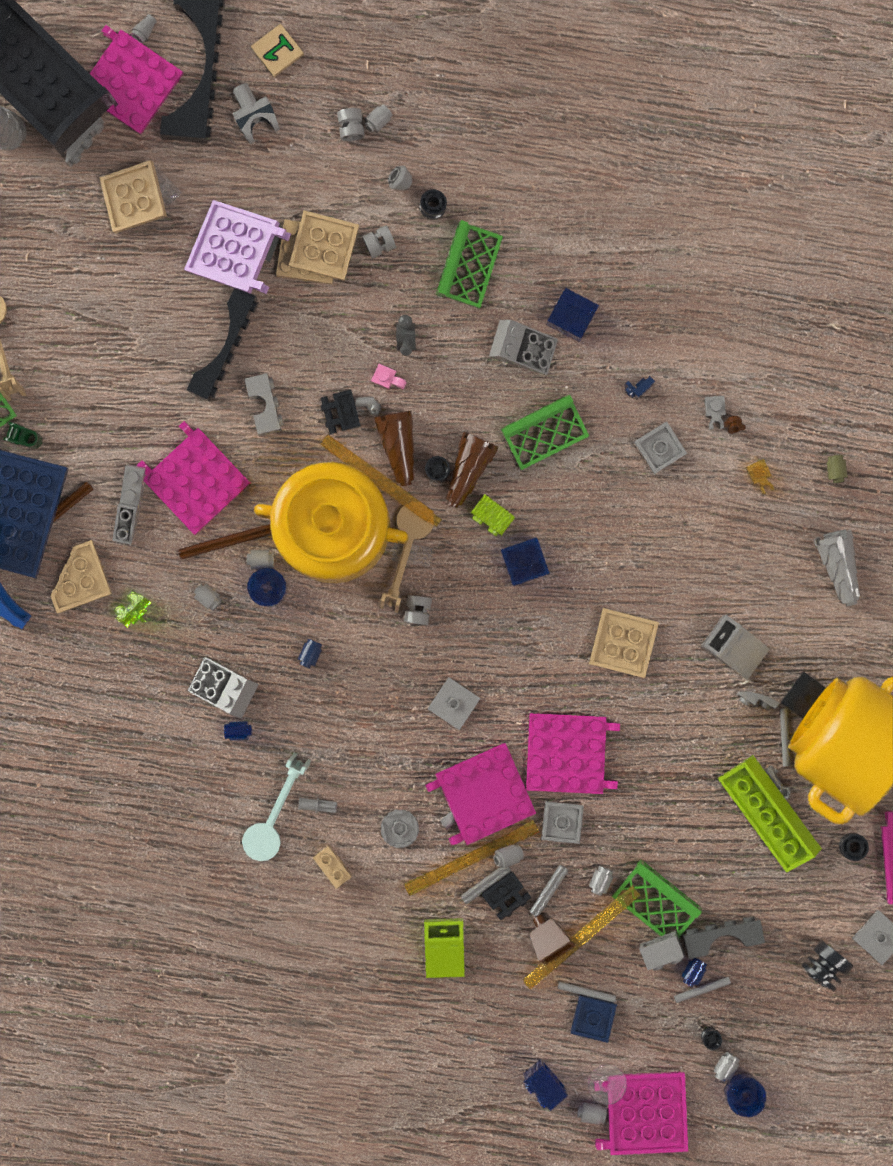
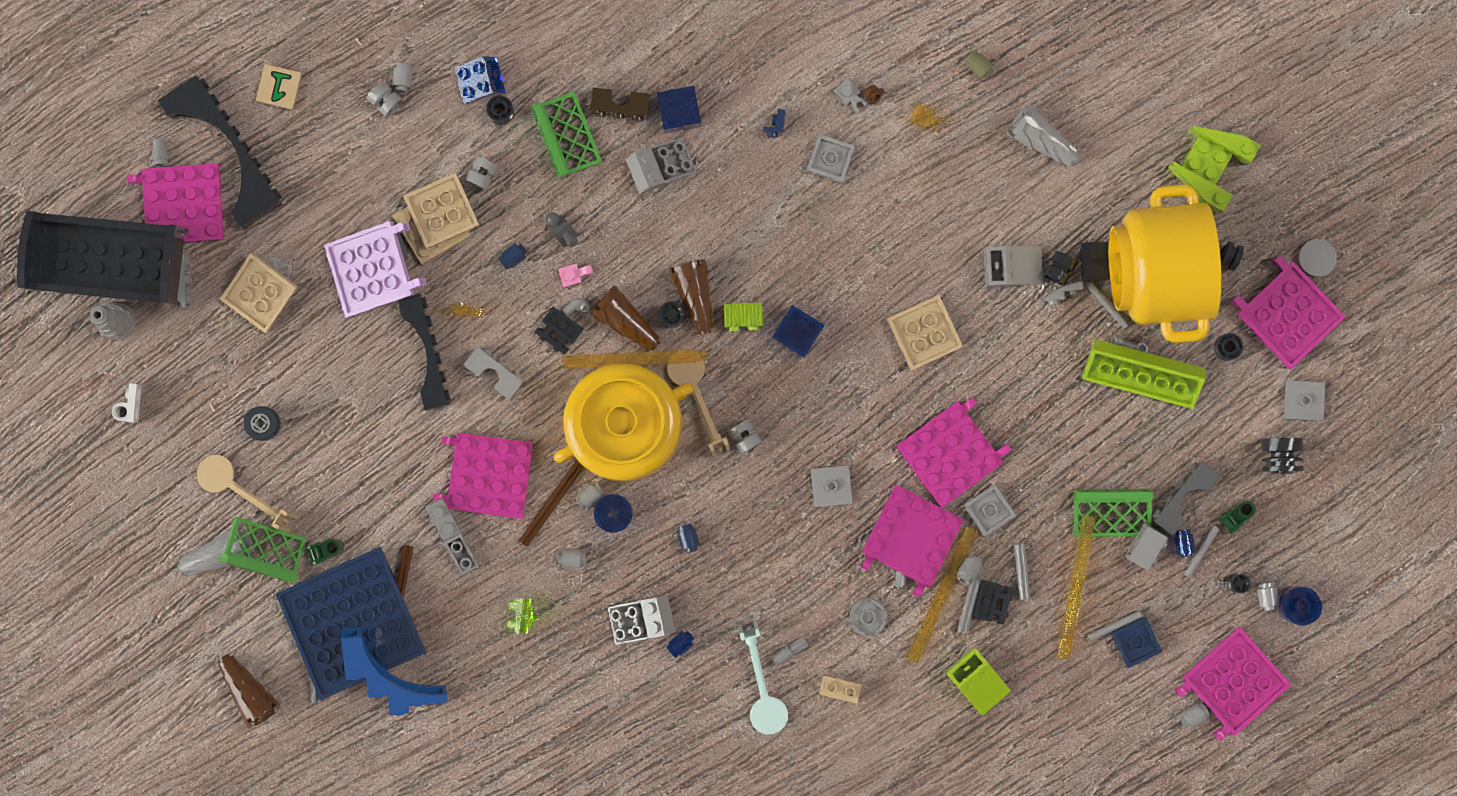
camera: 45 degrees left, 0 degrees up
(57, 305) = (262, 423): none -> black wheel
(80, 579) = (461, 625): tan plate -> none
(252, 112) = (299, 151): light grey connector -> none
(278, 334) = (461, 309): none -> clear yellow plate
(351, 325) = (513, 256): none -> dark blue brick
(400, 178) = (457, 110): light grey cone -> none
(437, 168) = (479, 79): none -> clear blue bracket
(540, 287) = (636, 108): none -> dark brown arch
(542, 415) = (716, 210): bright green fence -> none
(545, 1085) = (1140, 722): clear blue brick -> none
(549, 940) = (1053, 608): torso -> none
(601, 880) = (1056, 530): light grey brick -> none
(616, 1084) = (1196, 680): clear dish -> none
(752, 984) = (1236, 516): none -> dark green piece
(771, 678) = (1060, 267): none -> black wheel

